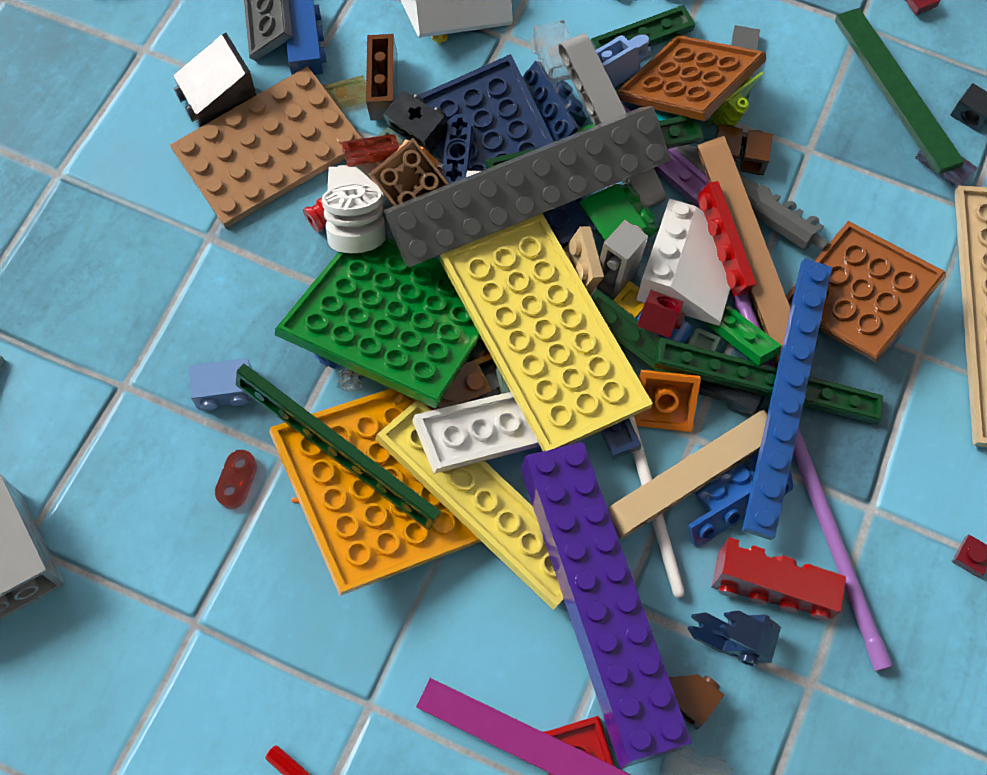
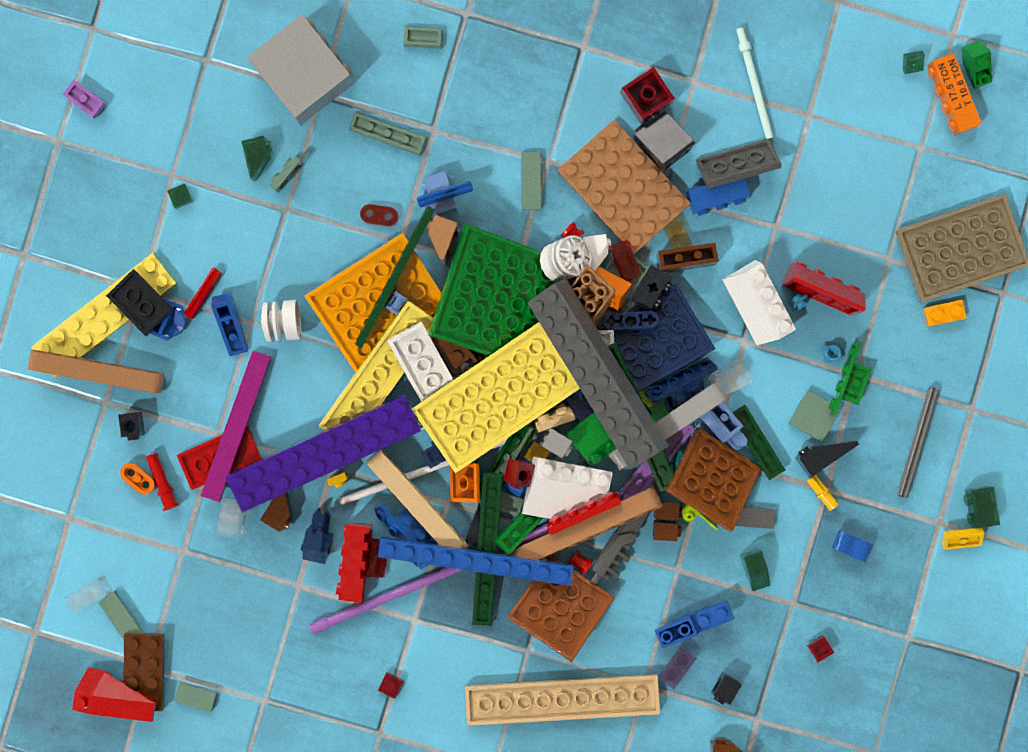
camera: 85 degrees right, 20 degrees up
(92, 656) = (257, 155): none -> clear green slope
(111, 451) = (387, 133): none -> sand green tile
(127, 603) = (291, 166): none -> sand green plate
(146, 96) = (647, 95): none -> dark red brick
(223, 368) = (444, 194): none -> blue axle
(231, 261) = (531, 180): none -> sand green tile
(293, 372) = (443, 236): none -> medium nougat slope
(364, 739) = (229, 323): none -> blue slope
(375, 650) = (281, 321): none -> white wheel
(377, 451) = (396, 302): none -> medium blue bush
(646, 590) = (338, 480): none -> yellow plate
(776, 547) = (375, 565): none -> clear red plate
(790, 266) = (580, 562): none -> red bush
(811, 55) = (756, 569): none -> clear green slope
(883, 134) = (694, 623): none -> blue slope
(899, 92) = (733, 631): dark green tile -> none

